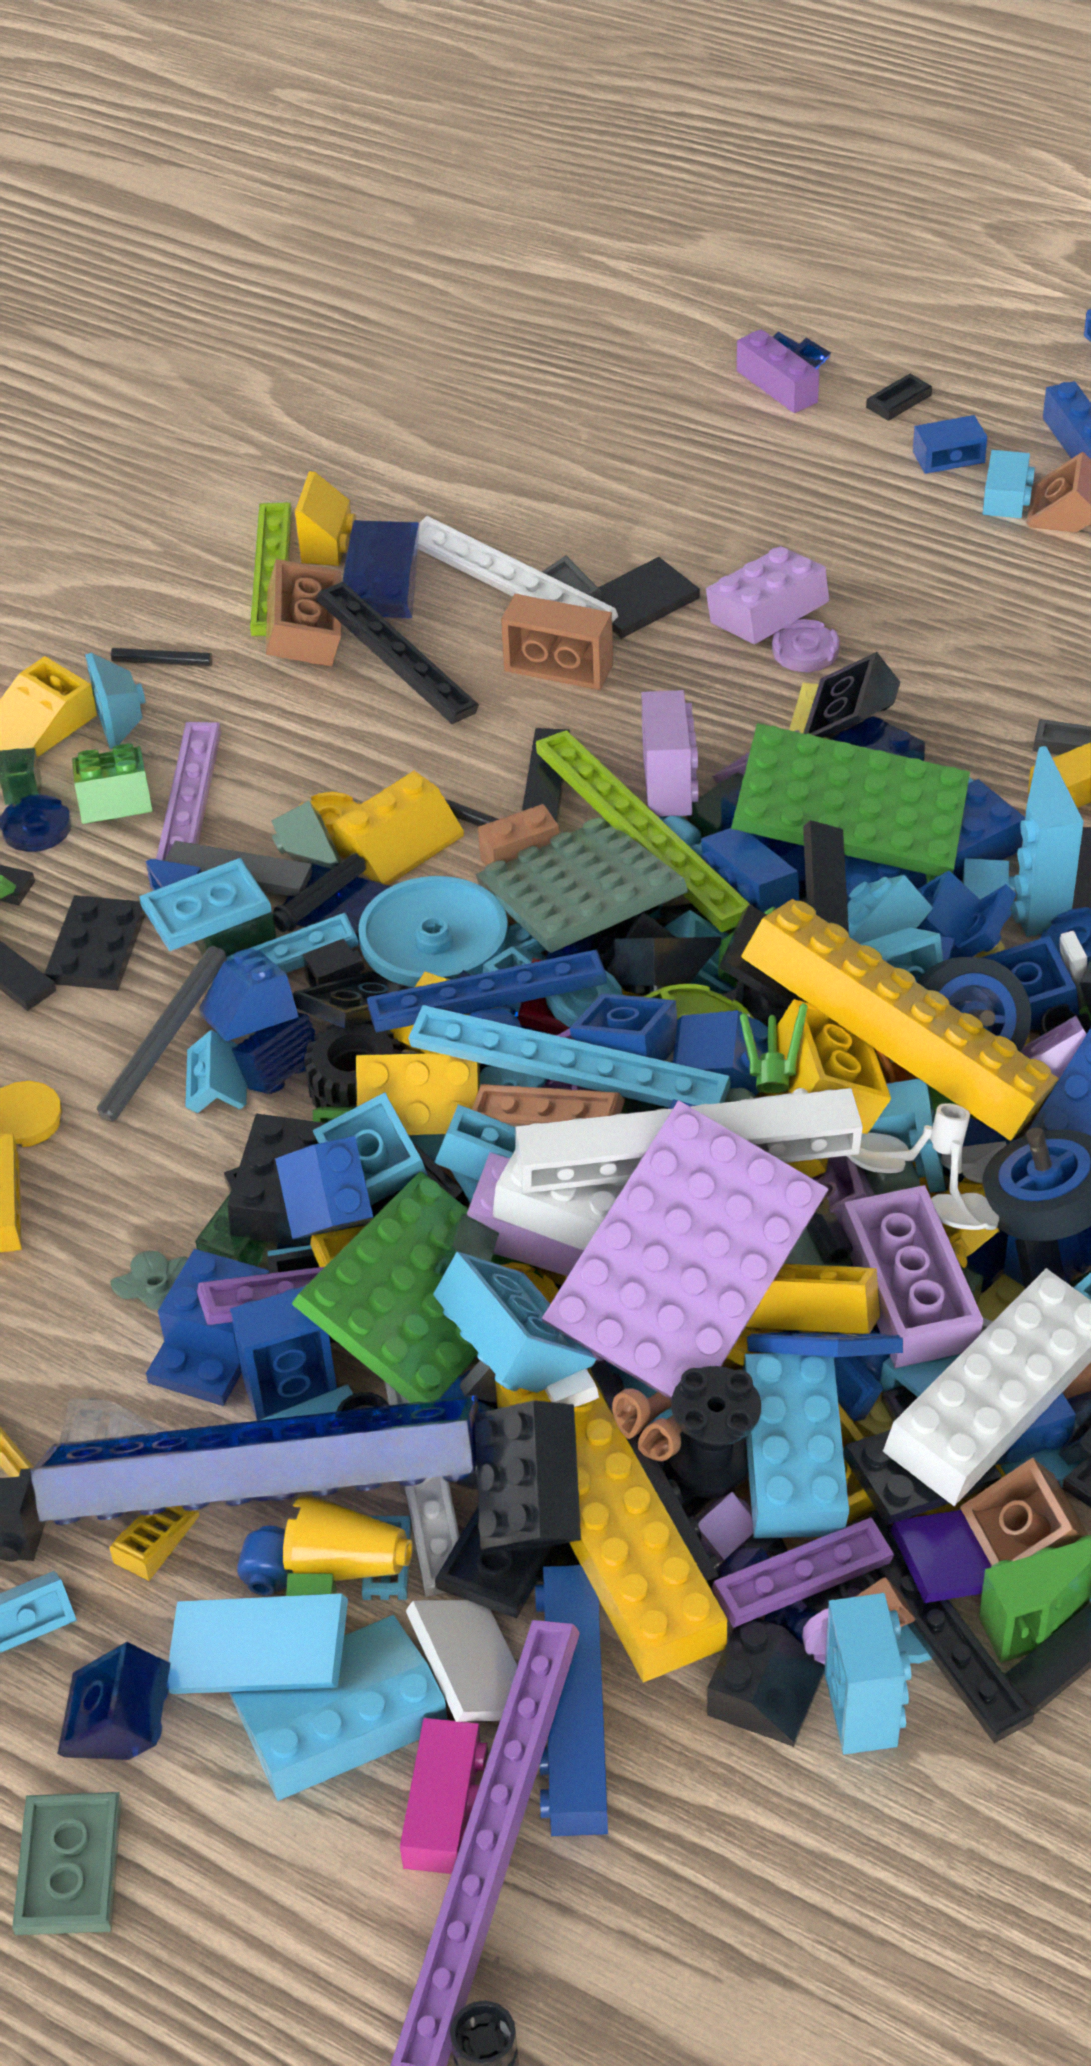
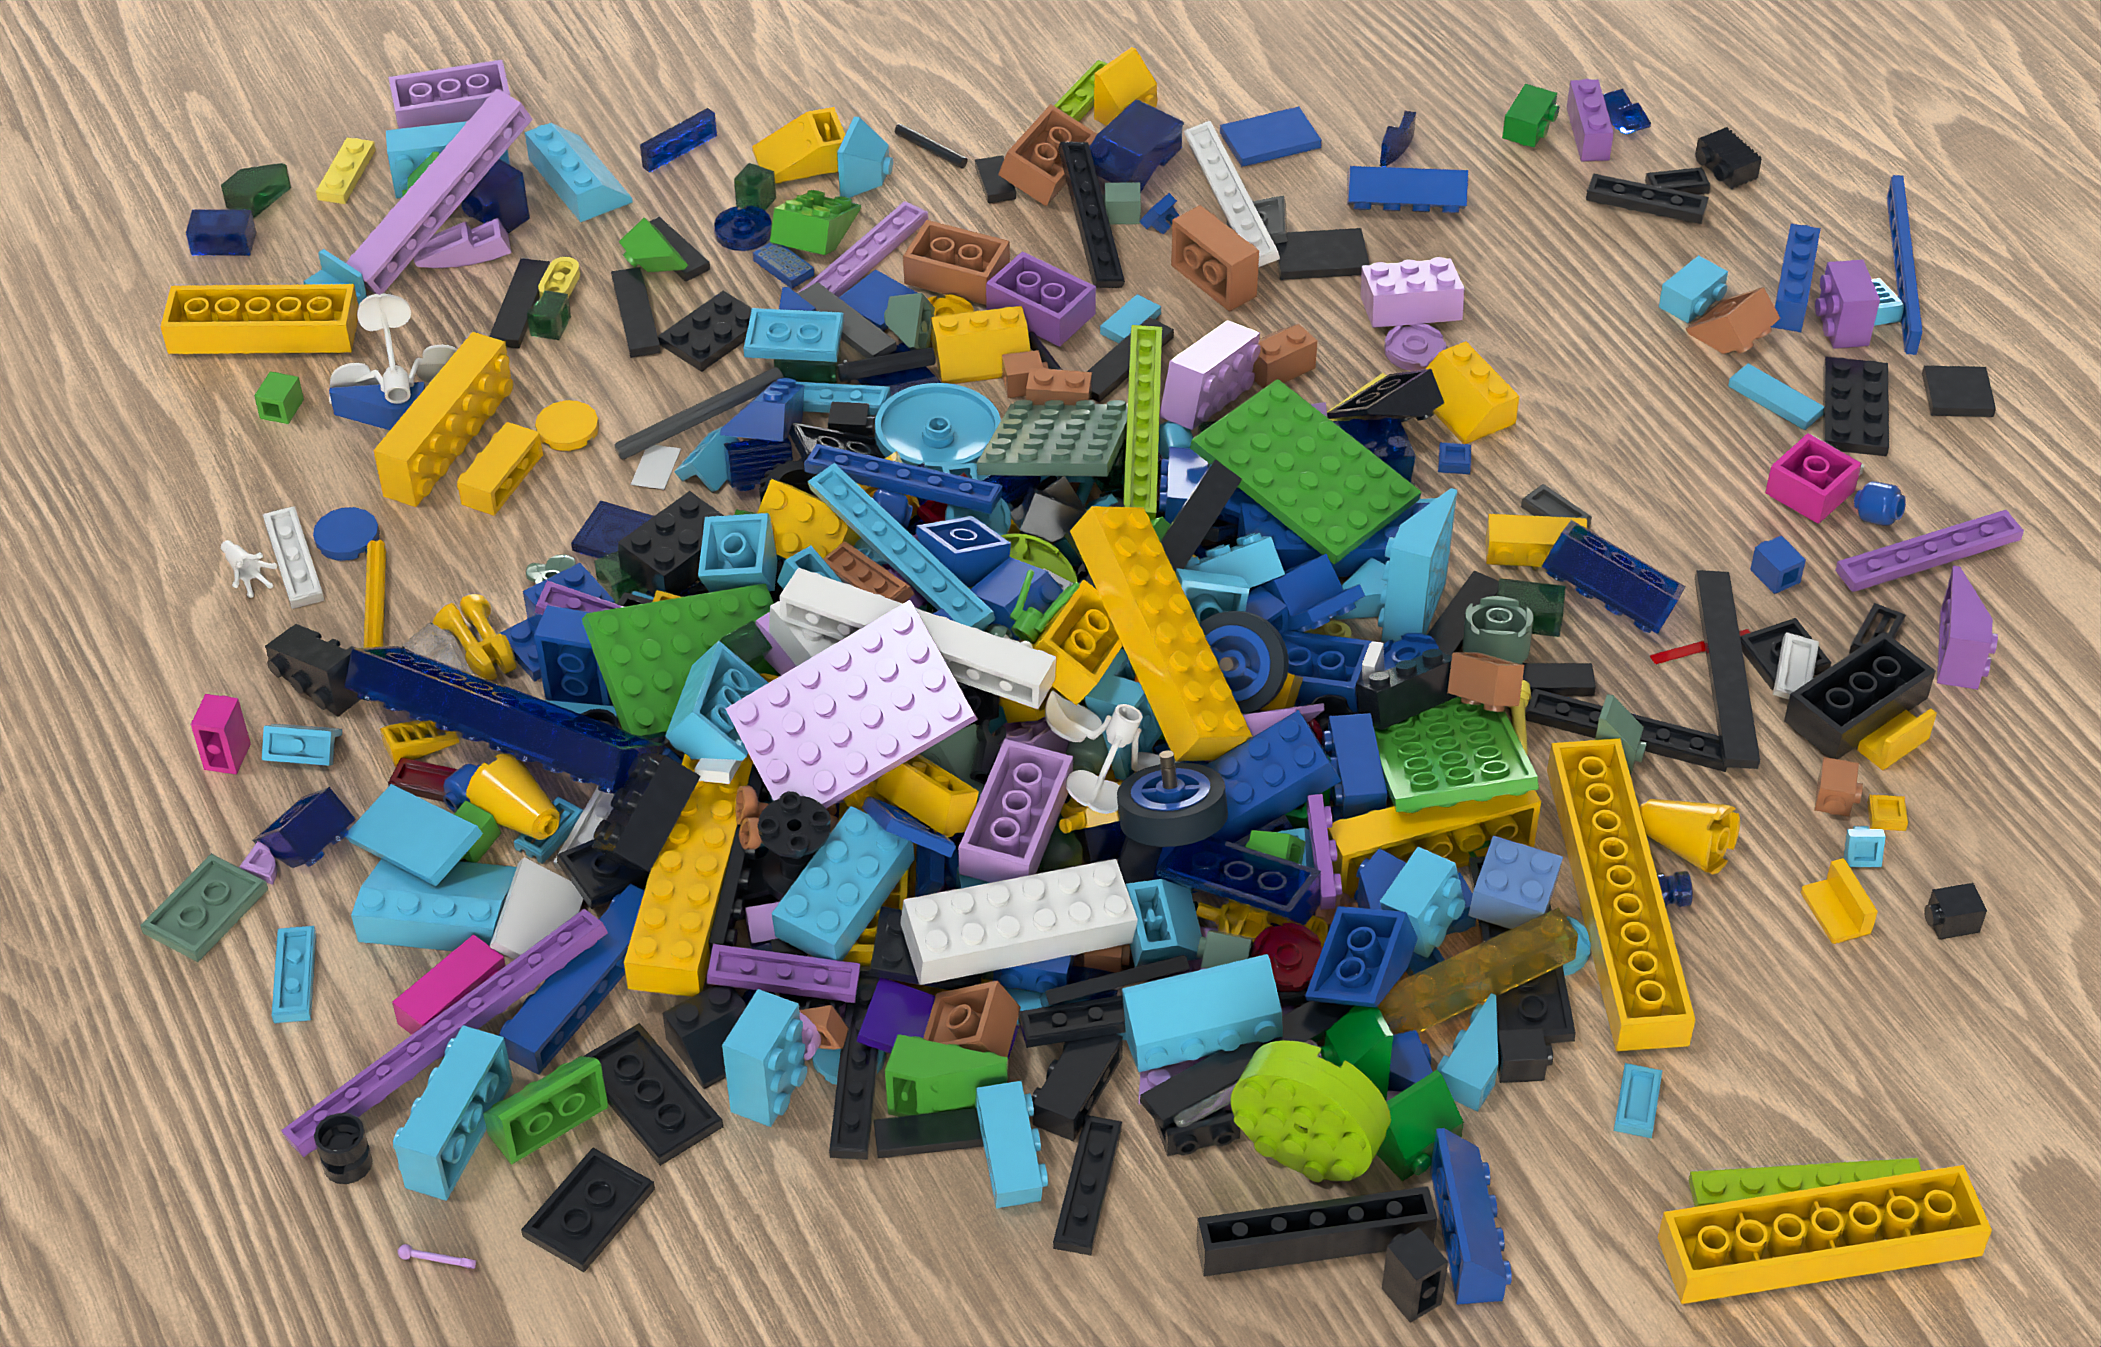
camera: 30 degrees right, 0 degrees up
(92, 1774) = (261, 863): none -> lavender tile
(112, 841) = (783, 264): none -> blue tile
(156, 1112) = (655, 467): none -> white sticker
(161, 1397) = (480, 654): none -> yellow piece
(175, 1202) = (606, 528): none -> clear blue tile
(200, 1576) = (421, 778): none -> dark red tile
(240, 1880) = (294, 974): none -> medium azure tile
(244, 828) = (872, 296): none -> blue tile
(251, 658) = (994, 186): none -> black tile
(302, 757) = (954, 260): none -> nougat brick
(324, 1188) = (683, 559): blue slope -> none
(415, 625) = (1123, 202): none -> sand green brick
(432, 746) = (1050, 298): none -> medium lavender brick
(457, 625) = (1160, 213): none -> blue tile
(459, 838) = (1016, 371): none -> nougat brick
(493, 506) = (1270, 136): none -> blue tile
(516, 739) = (1132, 313): none -> medium azure tile
(577, 1932) = (449, 1115): none -> medium azure brick
(617, 459) = (1397, 139): none -> clear blue slope
(662, 1863) = (547, 1108): none -> bright green slope
(670, 500) = (1407, 187): none -> blue slope
(709, 698) = (1285, 355): none -> nougat slope
(723, 388) = (1530, 115): none -> green brick
(746, 1785) = (653, 1095): none -> black tile
(796, 1952) = (588, 1209): none -> black tile
(886, 420) = (1647, 198): none -> black plate
(919, 661) = (1473, 394): none -> yellow slope
(927, 354) = (1728, 158): none -> black brick
(937, 732) = (1454, 458): none -> blue tile
(949, 444) = (1676, 237): blue brick -> none

